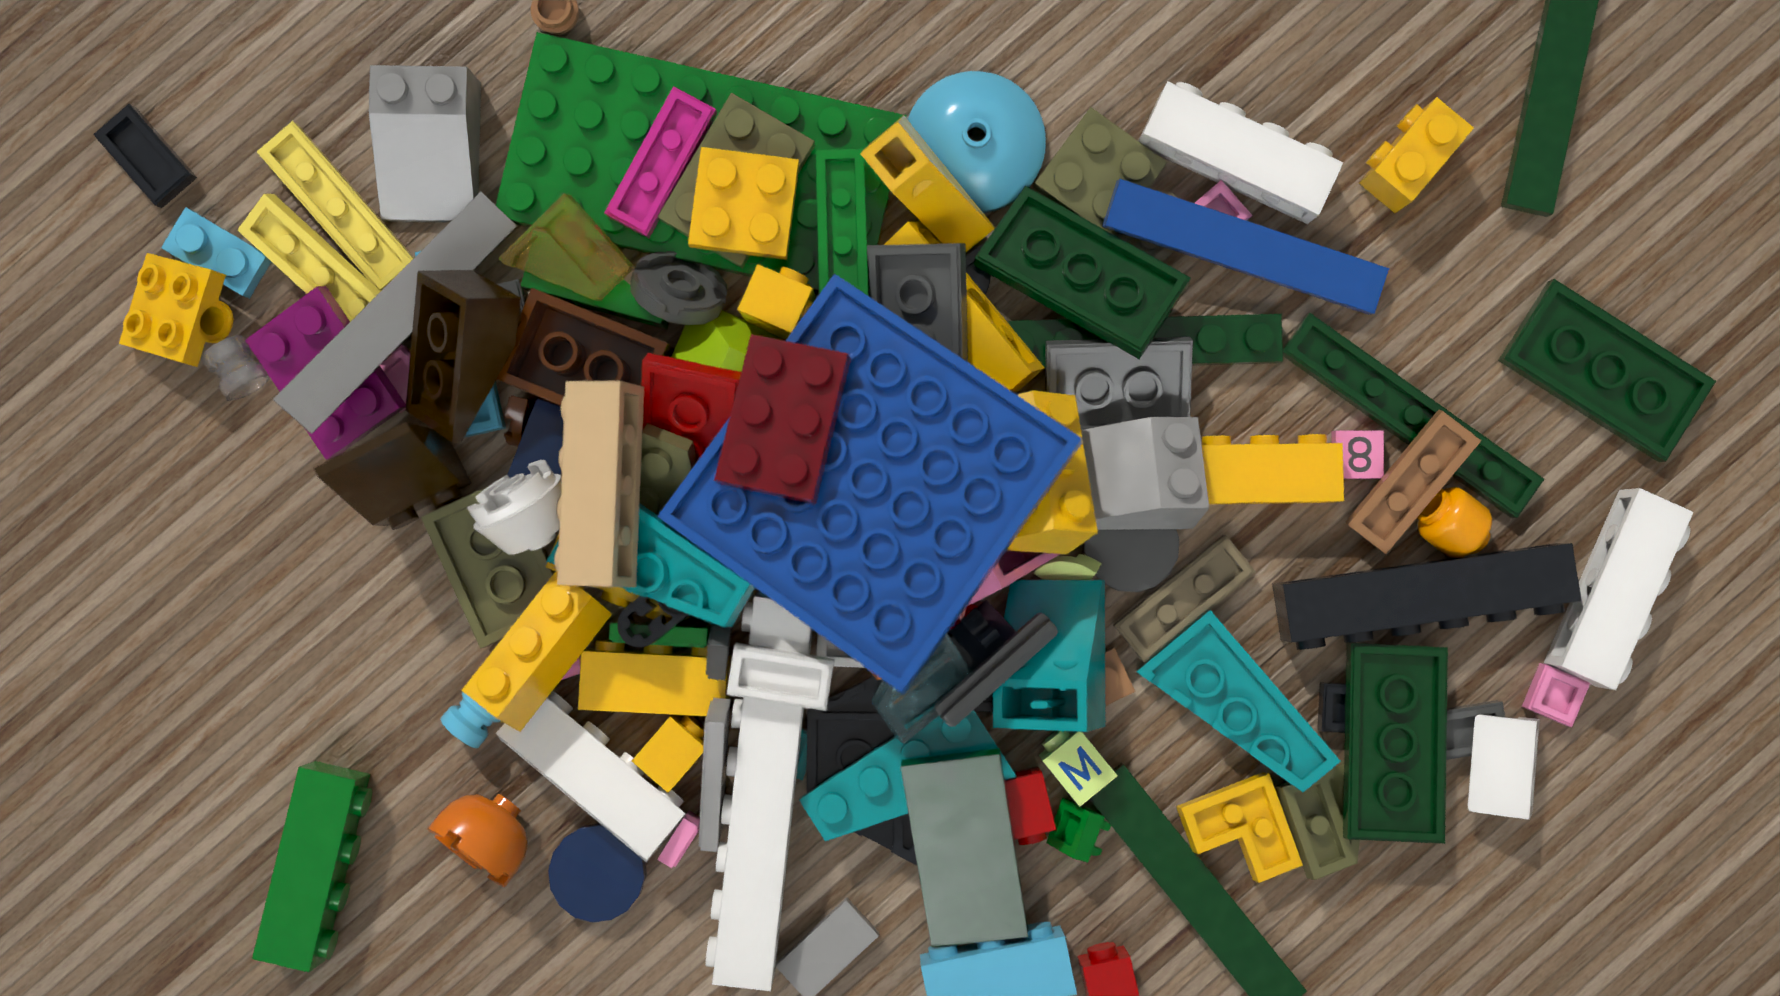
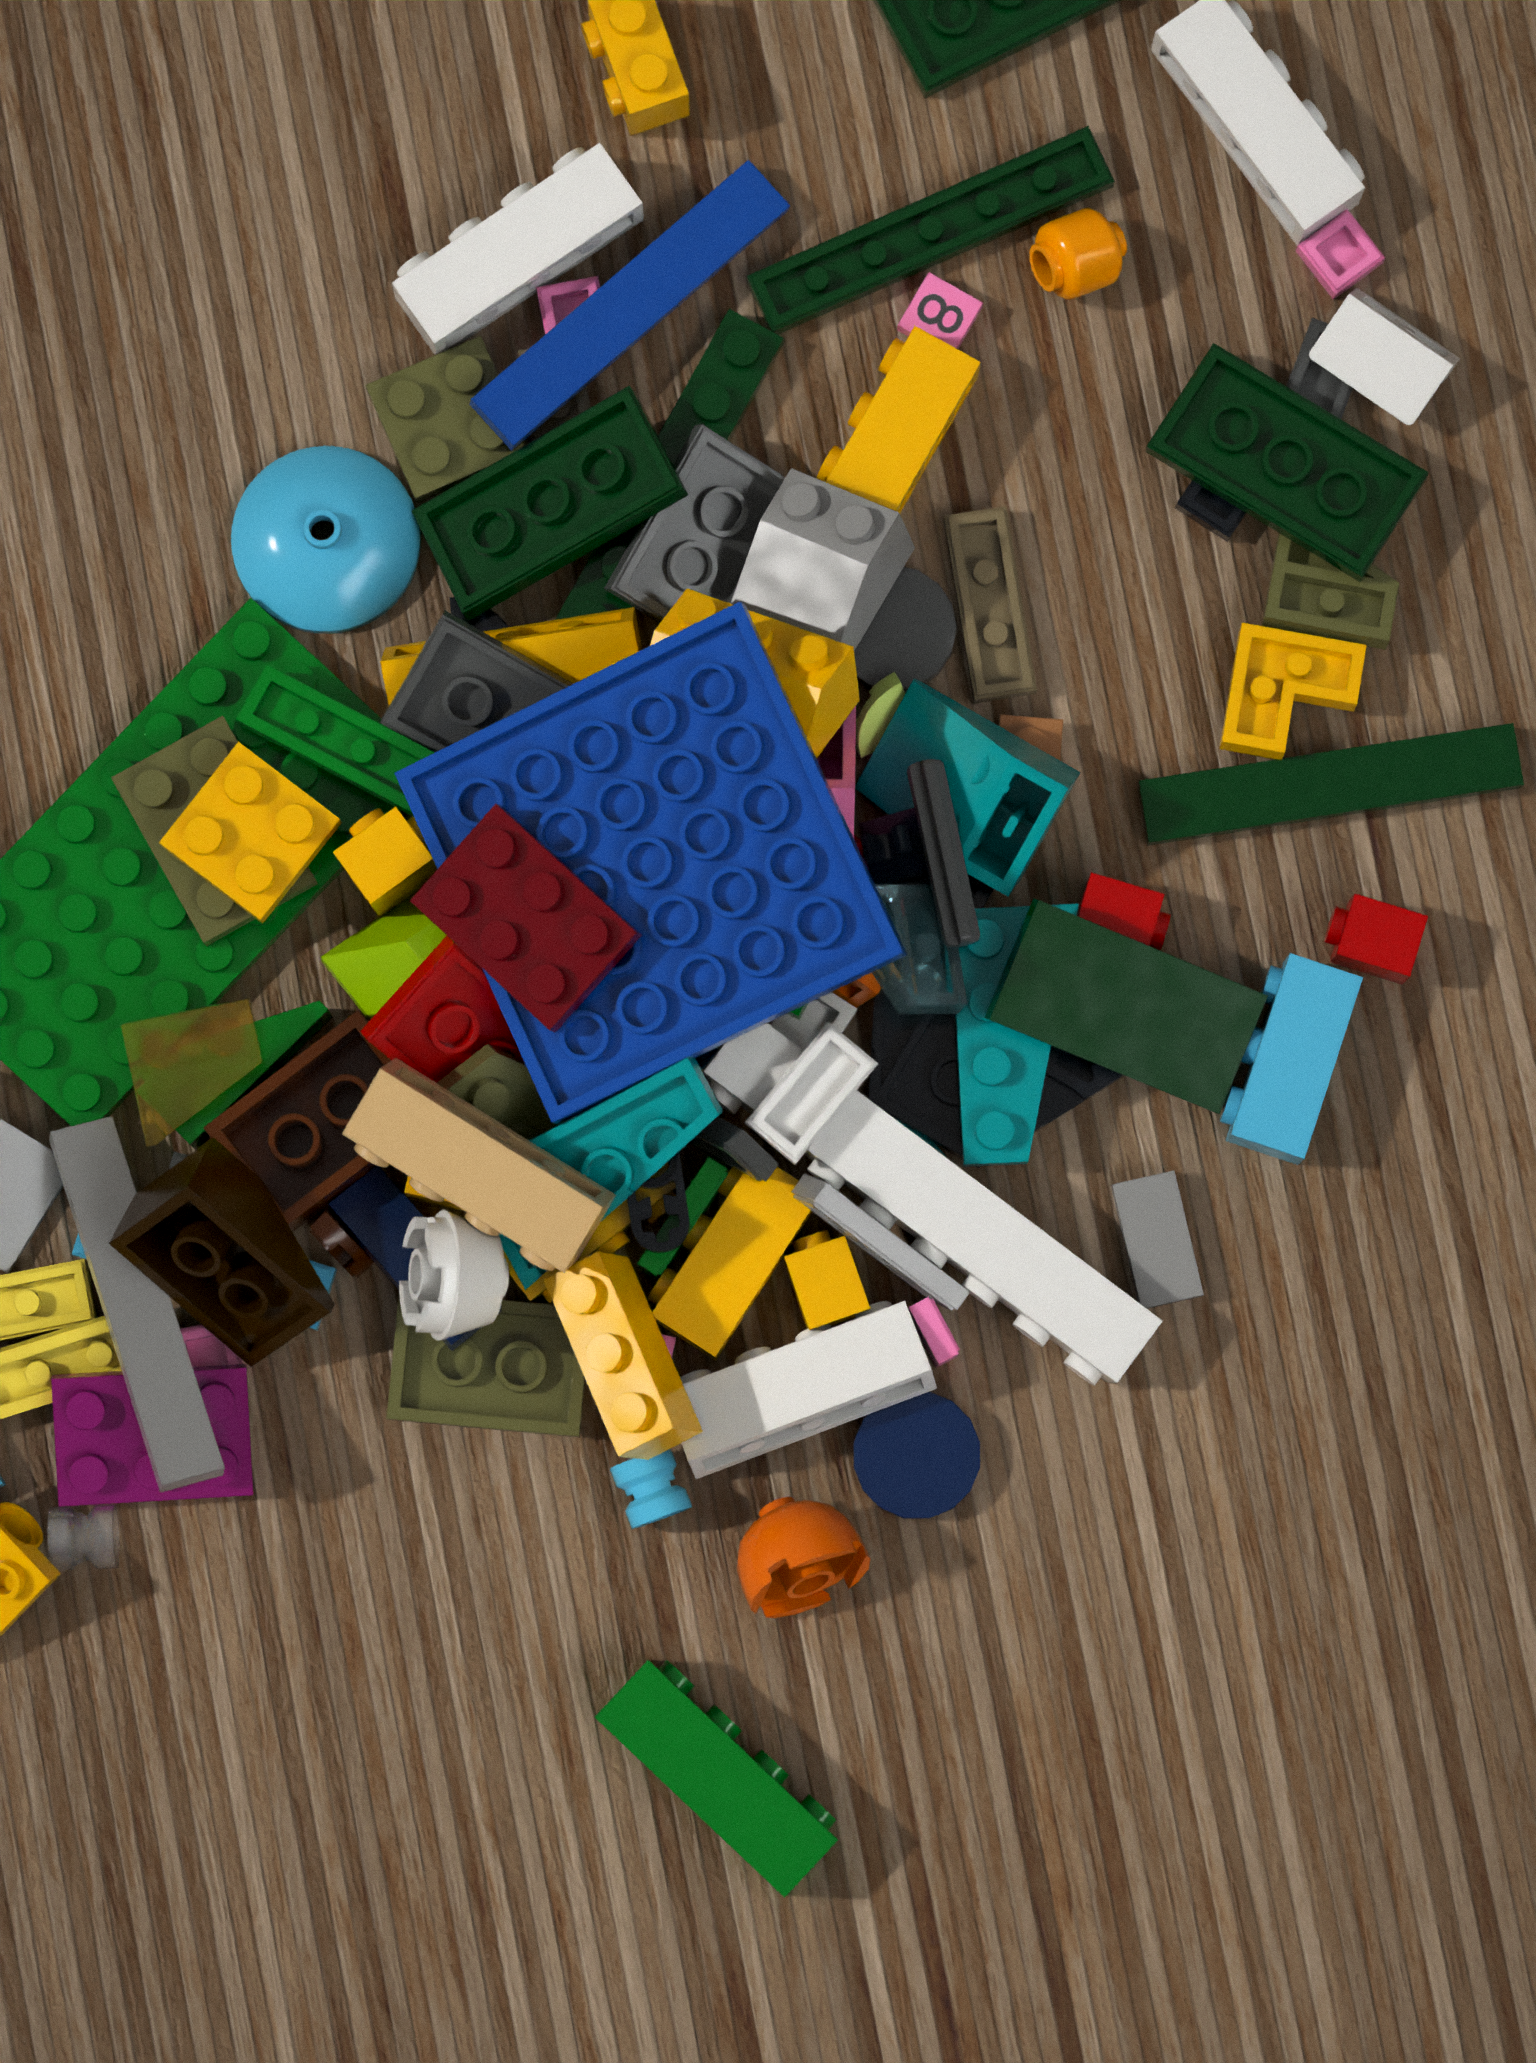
camera: 65 degrees left, 5 degrees down
(397, 475) = (330, 1404): dark brown slope -> none
(660, 162) = (141, 905): dark pink tile -> none
(678, 289) = (300, 967): dark grey tile -> none
(926, 185) = (348, 619): yellow slope -> none
(1076, 764) = (1105, 832): yellowish green brick -> none
(1077, 830) = (1182, 875): green tile -> none
(1230, 692) = (1126, 611): teal wing -> none
(1413, 481) = (1004, 273): medium nougat plate -> none
(1427, 593) = (1138, 333): black brick -> none

